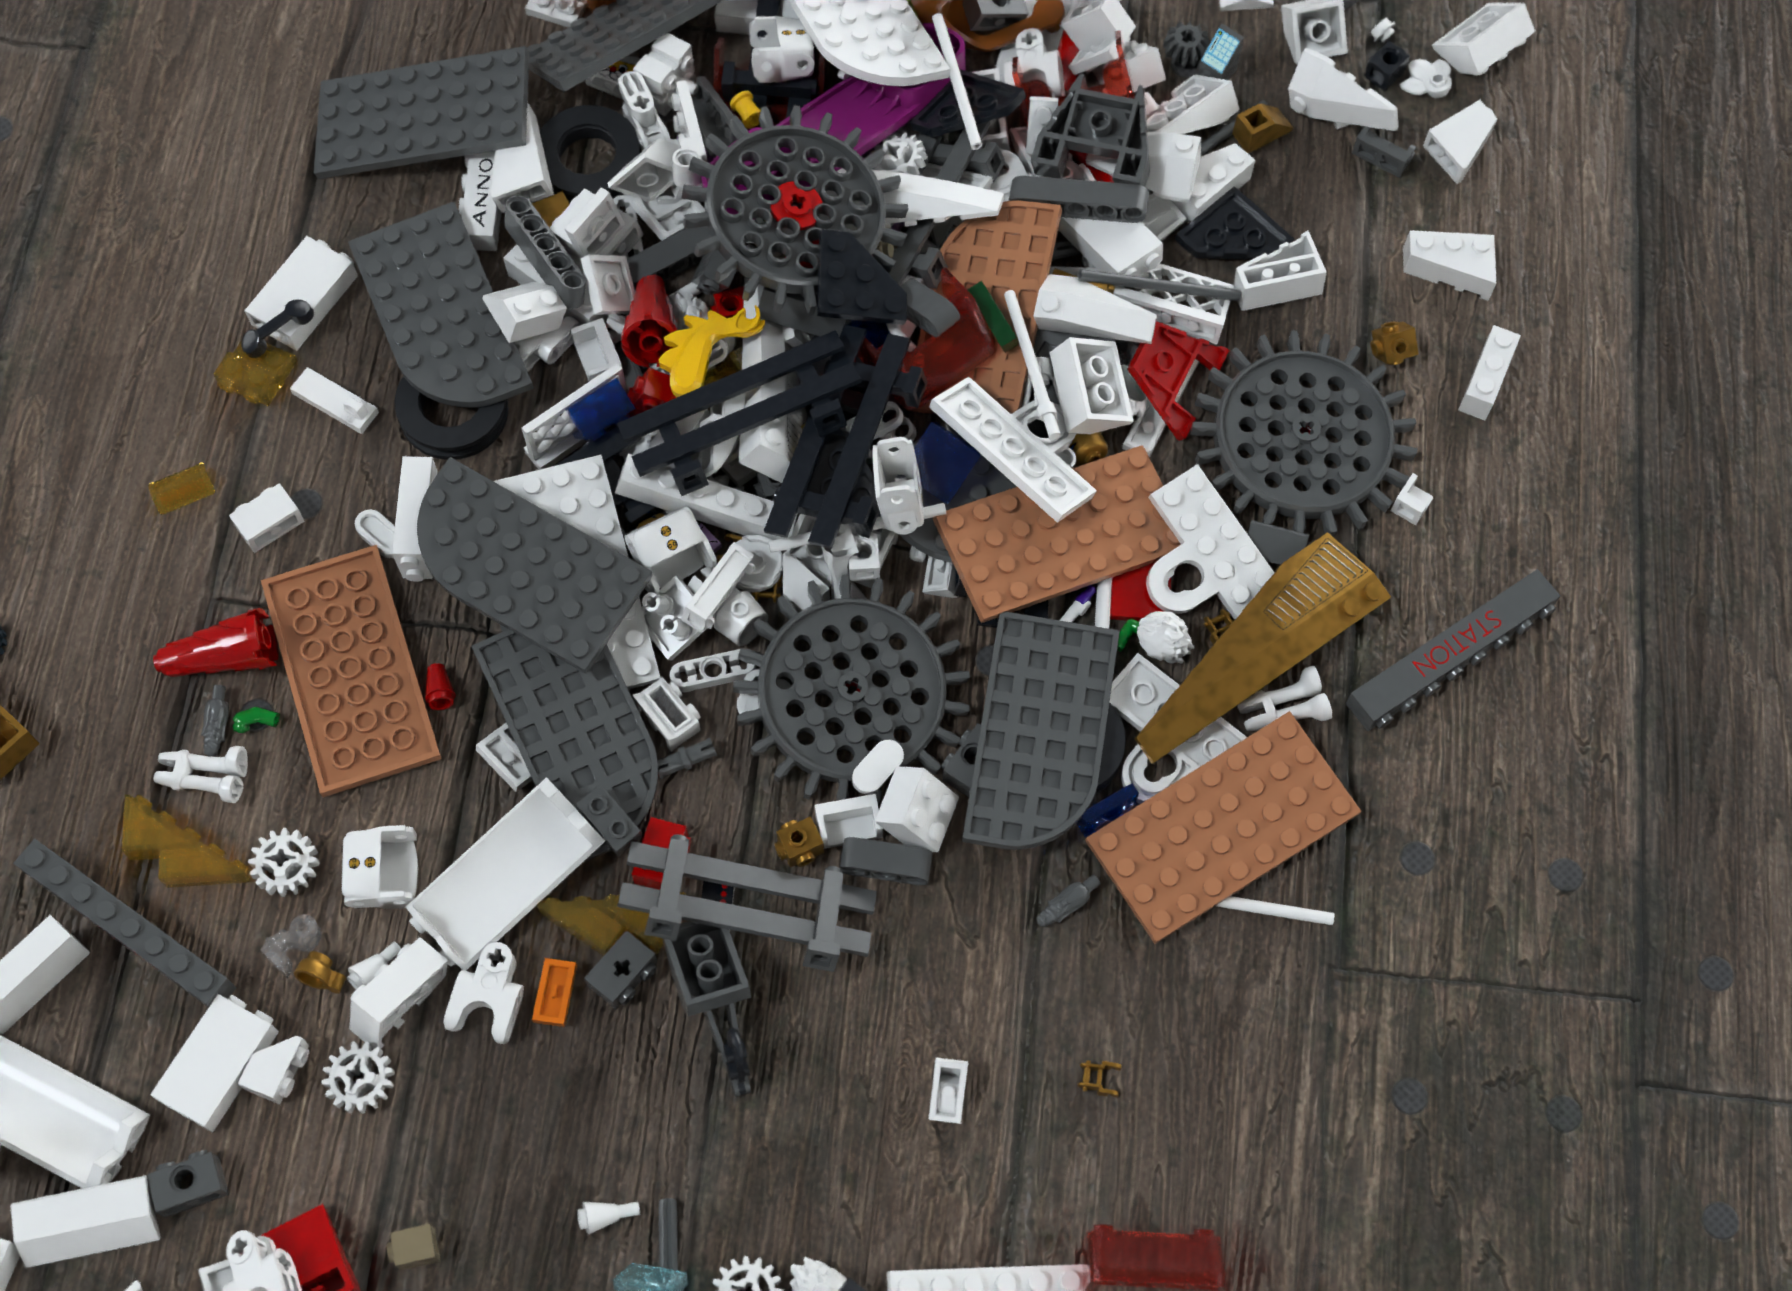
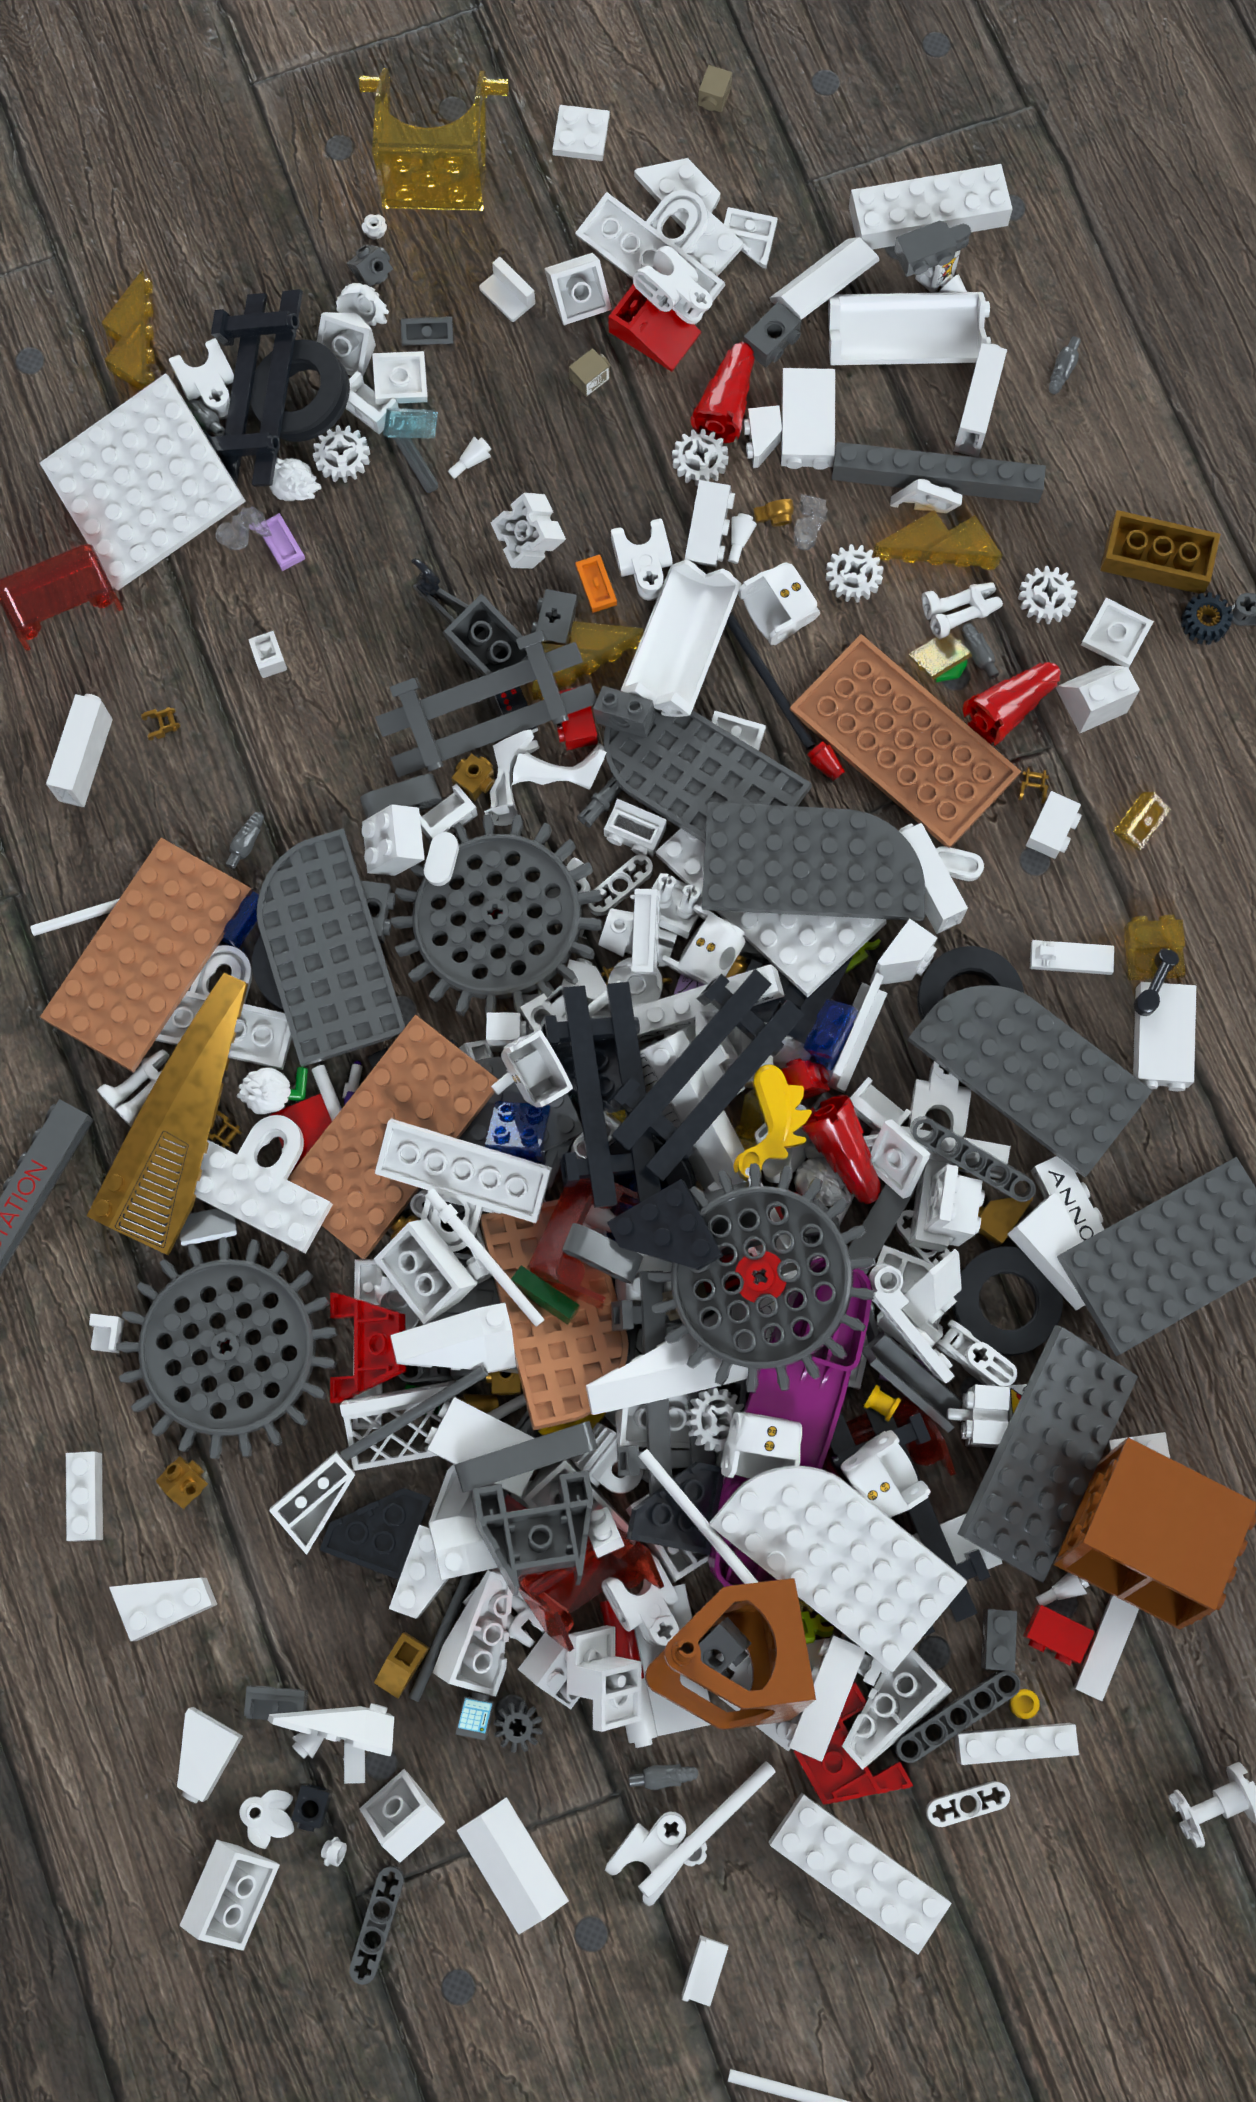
camera: 155 degrees right, 10 degrees up
(71, 669) = (1117, 633): none -> white plate
(103, 729) = (1038, 601): none -> white gear
(134, 608) = (1098, 696): none -> white slope
(155, 903) = (927, 497): none -> white wing
(259, 732) = (940, 655): none -> clear yellow piece
(262, 573) = (1043, 788): none -> pearl gold piece
(292, 1123) = (725, 396): none -> red cone
(442, 790) = (770, 682): none -> black piece
(492, 447) = (906, 955): none -> white slope
(526, 310) = (958, 1099): white slope -> none
(593, 1076) = (528, 530): none -> white brick
(685, 793) = (541, 772): none -> white animal
(753, 851) = (506, 756): none -> white animal
(868, 1226) = (282, 543): none -> lavender tile
(871, 109) = (760, 1444): none -> white piece
(903, 571) = (504, 1029): none -> white brick
(917, 1253) = (236, 534): none -> clear leg
(1203, 1075) = (79, 750): none -> white brick

